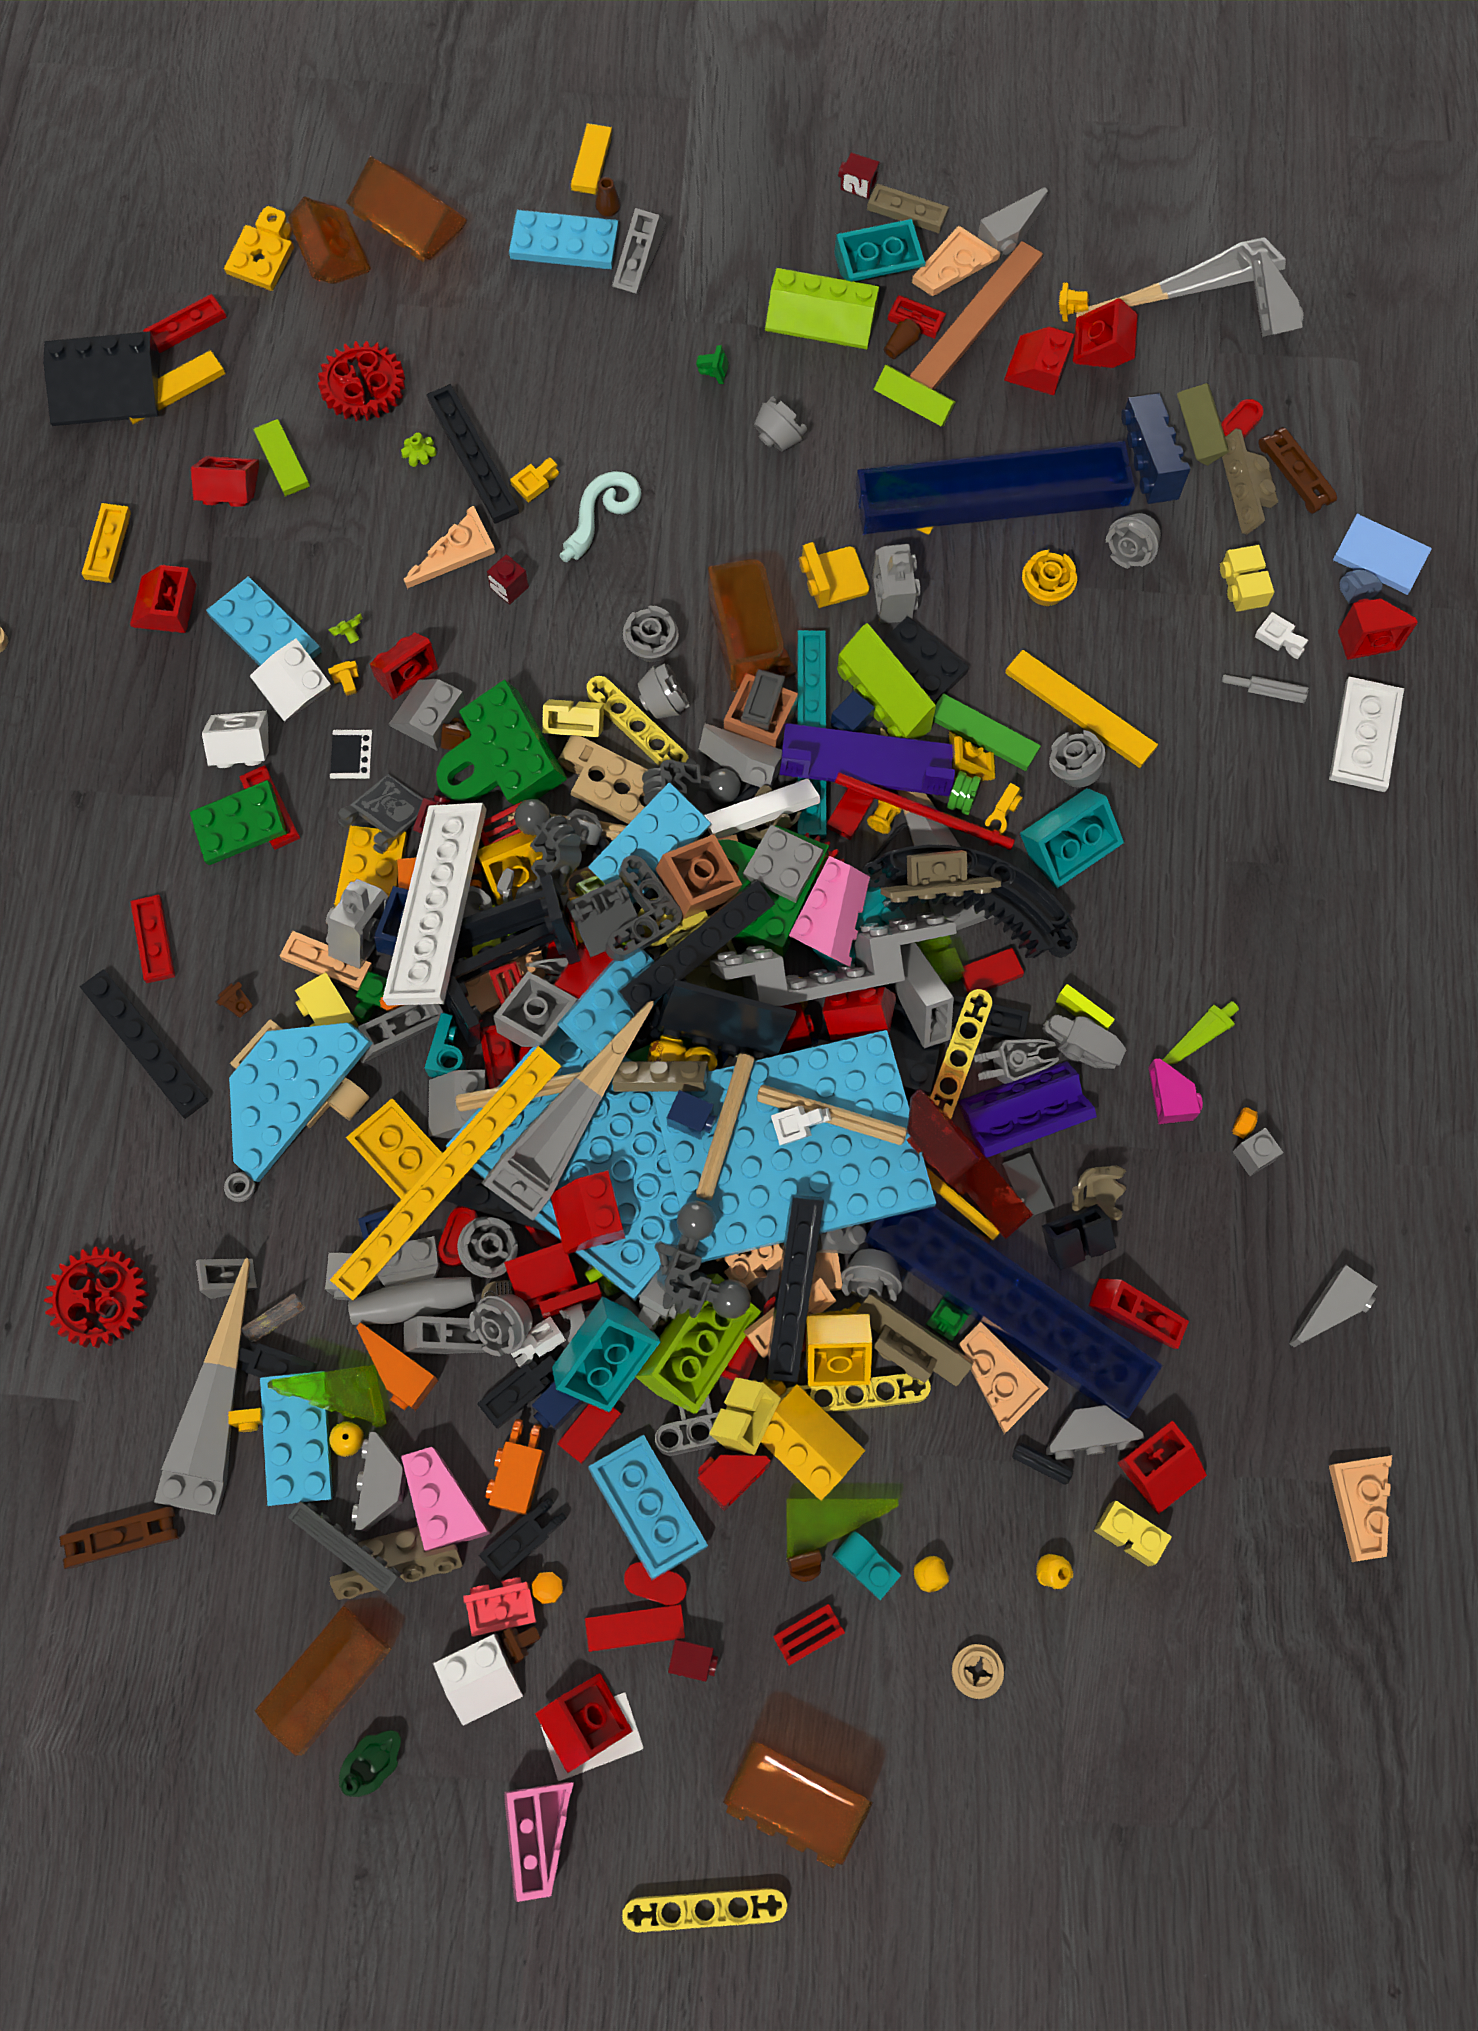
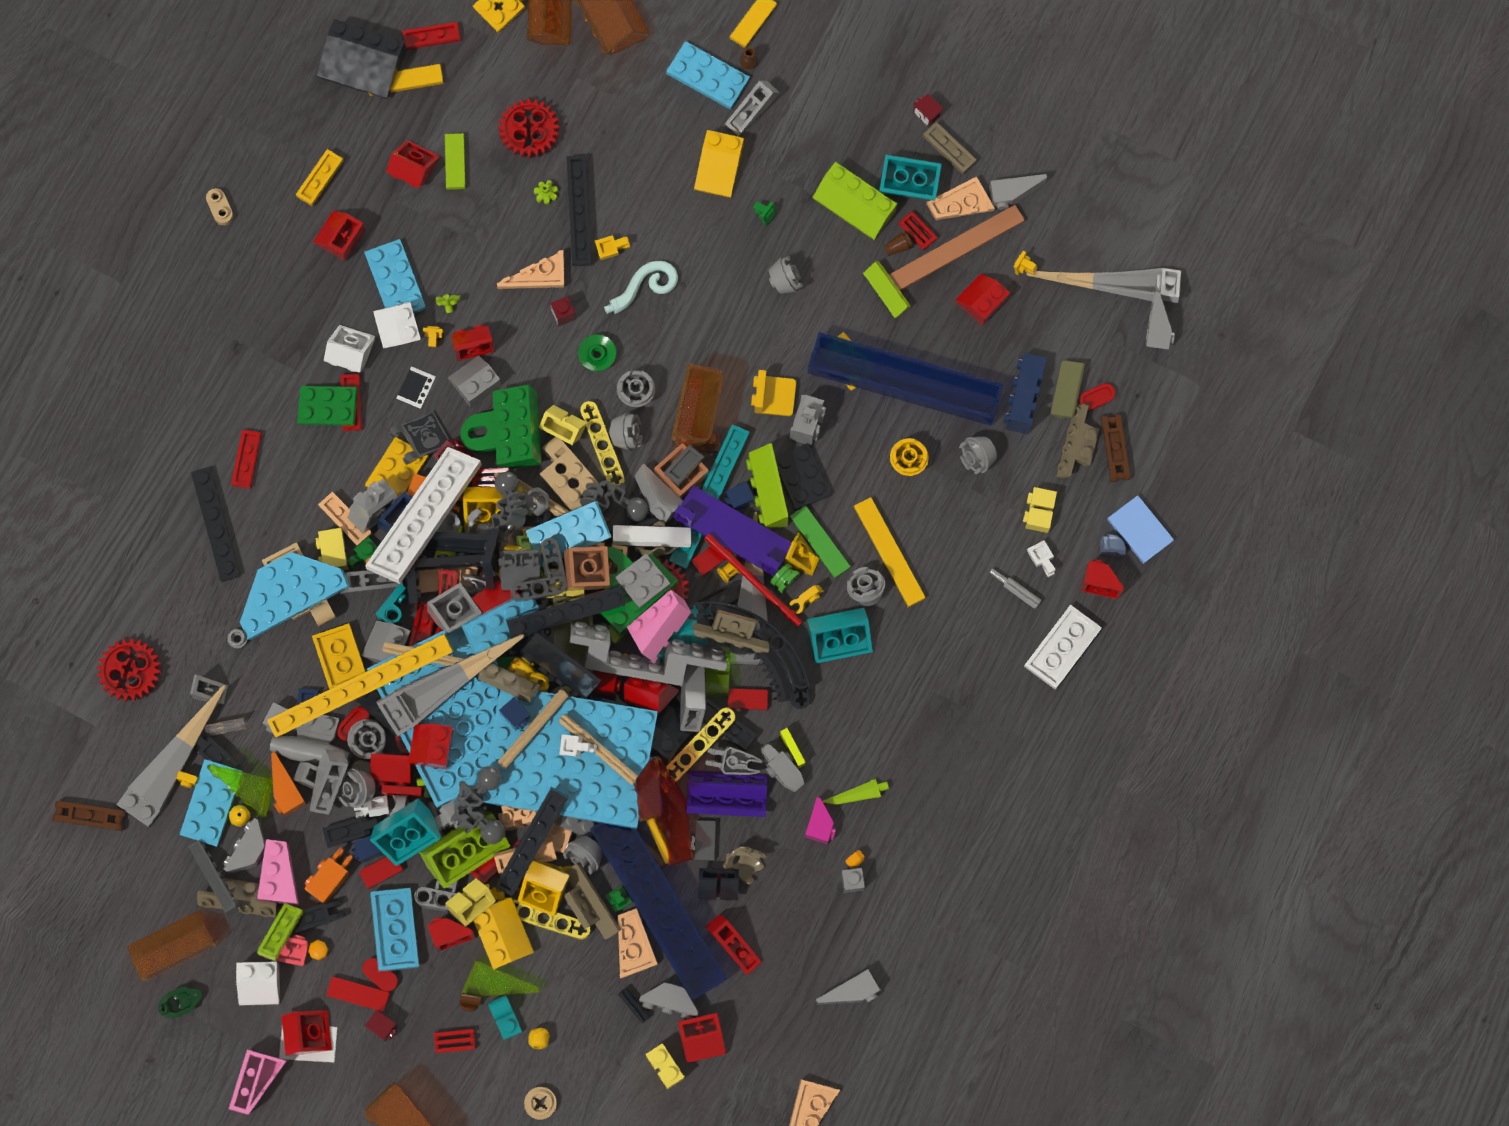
camera: 20 degrees right, 5 degrees up
(234, 999) = (279, 519): reddish brown brick -> none
(454, 733) = (484, 403): reddish brown brick -> none
(457, 1330) = (328, 780): none -> light grey slope
(480, 1587) = (280, 932): none -> lime tile
(516, 1643) = (287, 973): reddish brown brick -> none
(577, 603) = (594, 344): none -> green dish
(628, 330) = (719, 163): none -> yellow slope
(1054, 1571) = (610, 1067): yellow piece -> none
(1106, 335) = (1035, 299): red slope -> none

